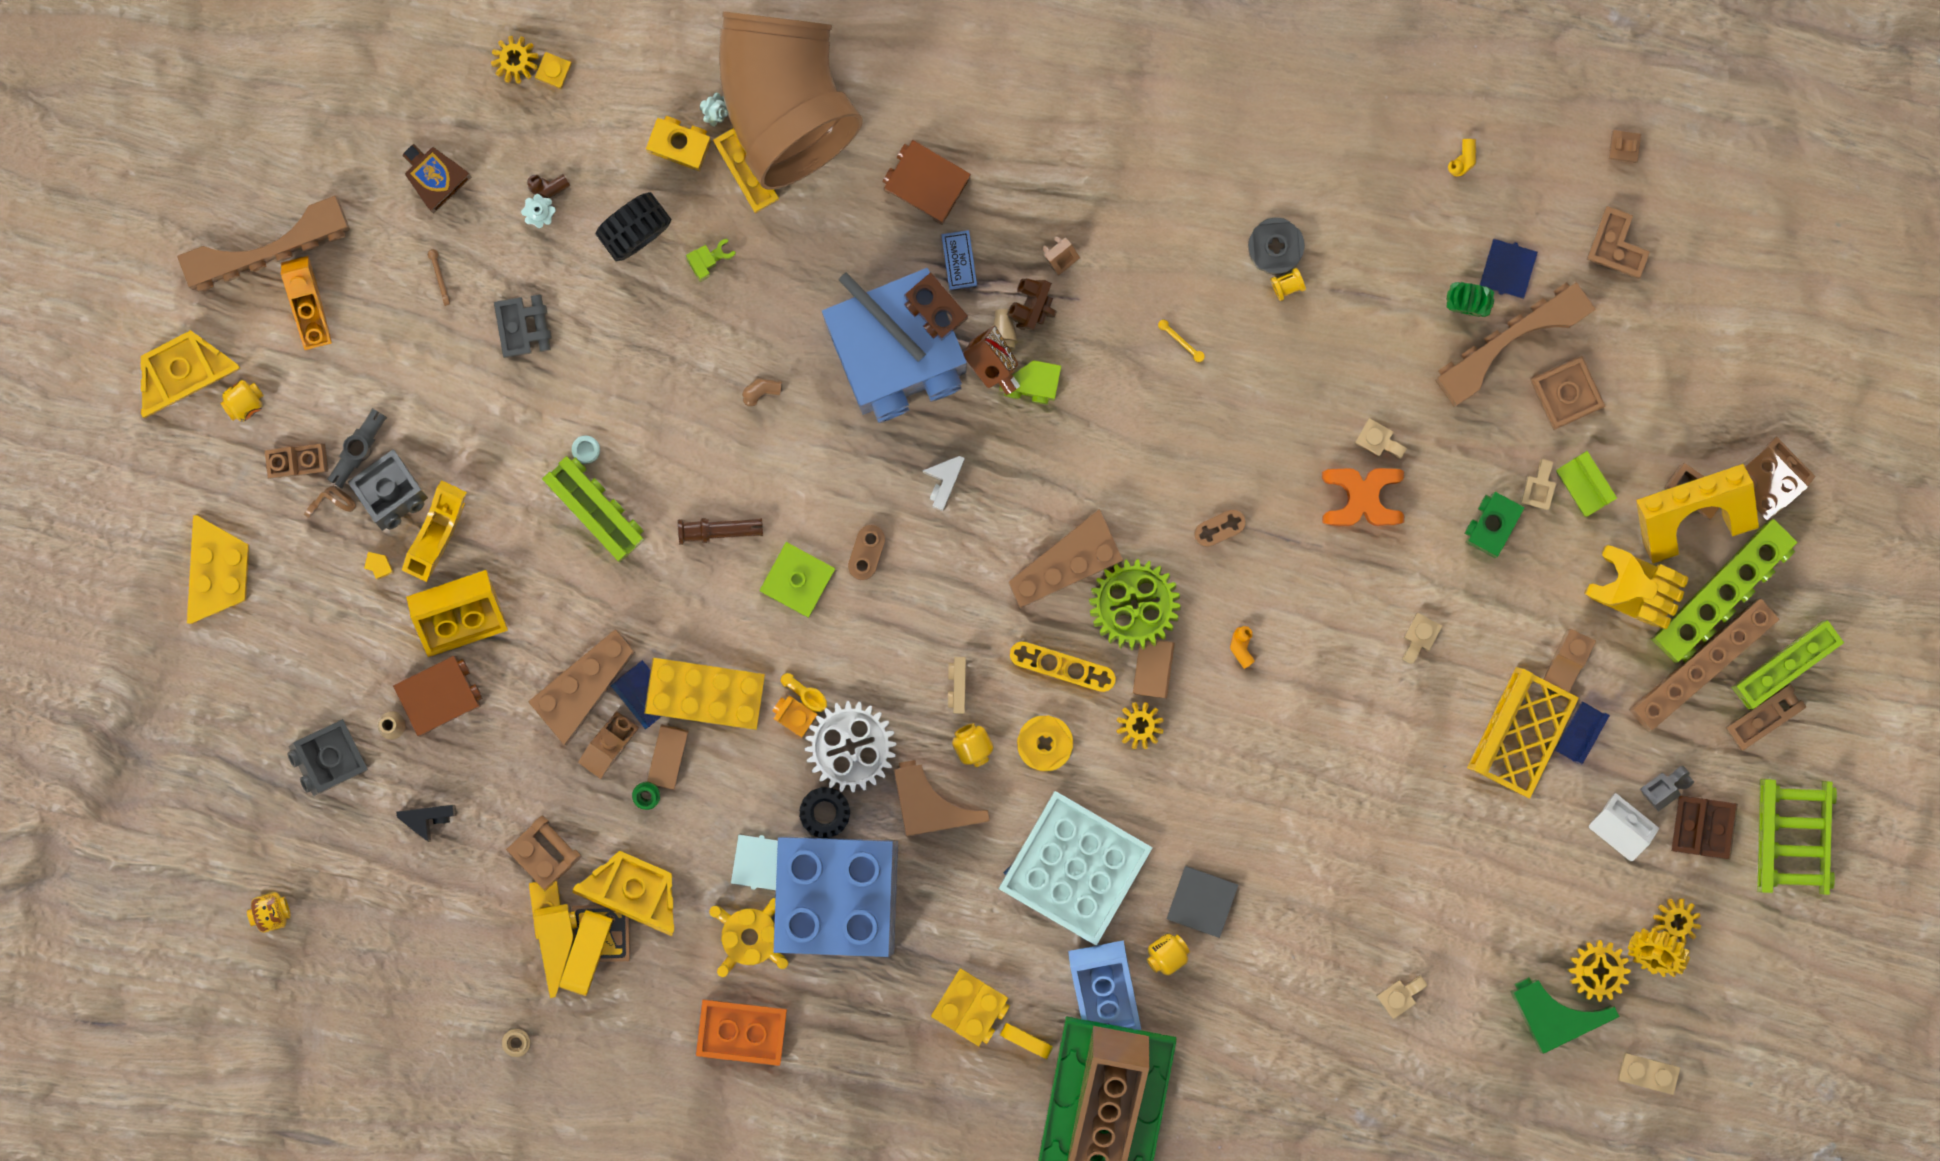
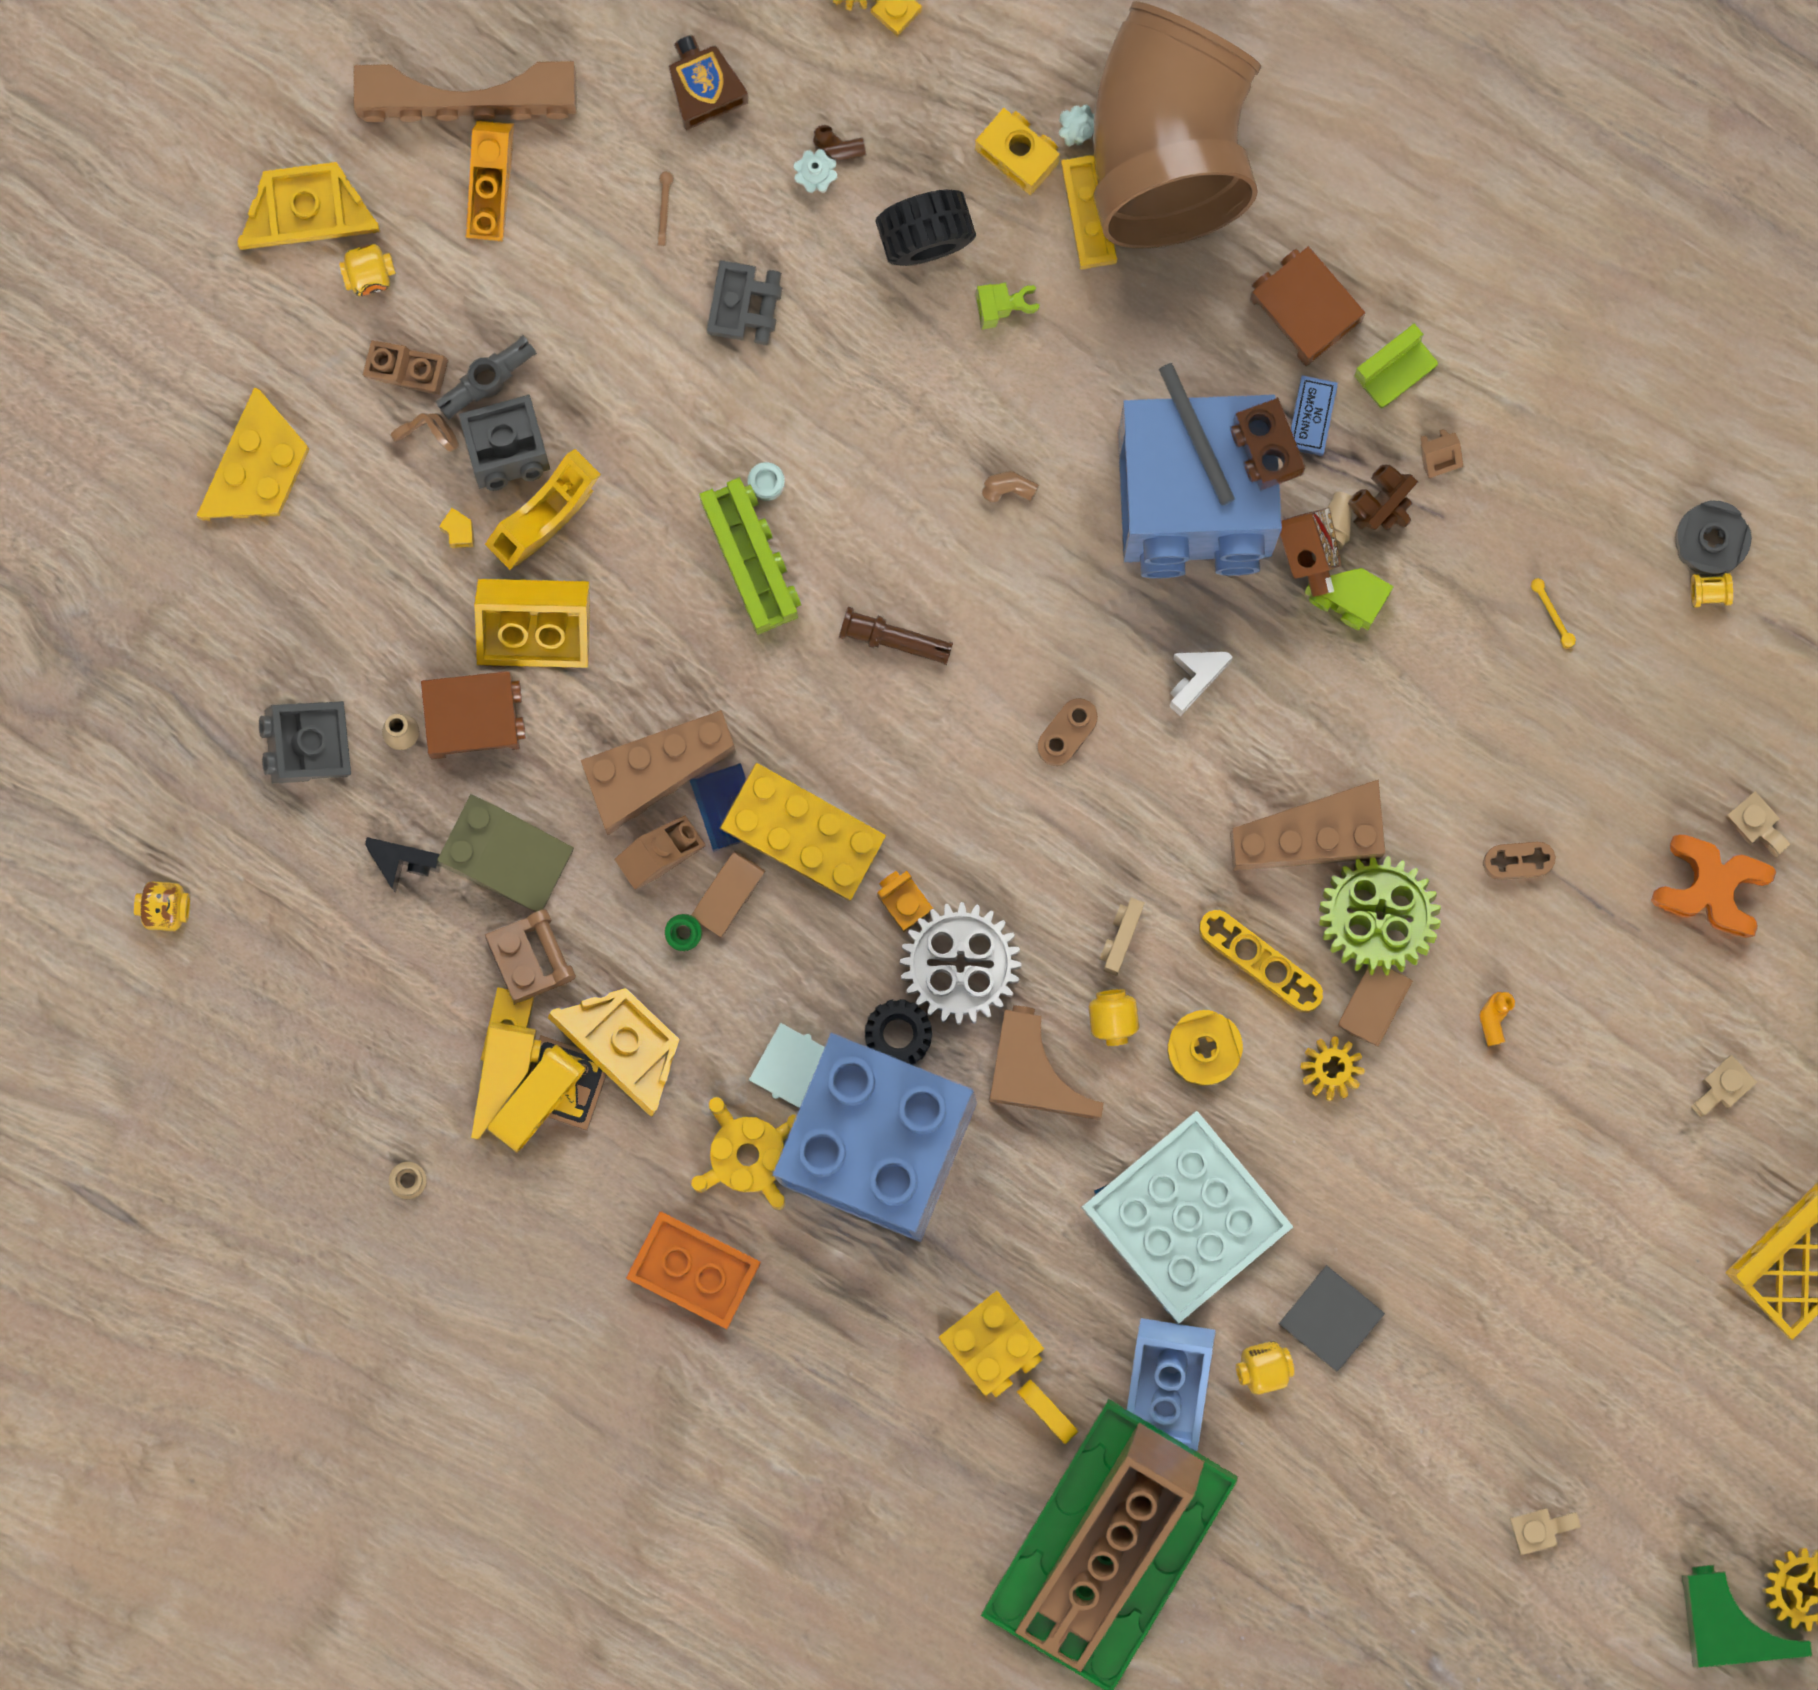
camera: 25 degrees right, 5 degrees down
(499, 786) = (505, 854): none -> olive slope
(797, 579) = (969, 734): lime plate -> none
(810, 697) = (932, 884): yellow piece -> none
(1007, 203) = (1396, 367): none -> lime panel

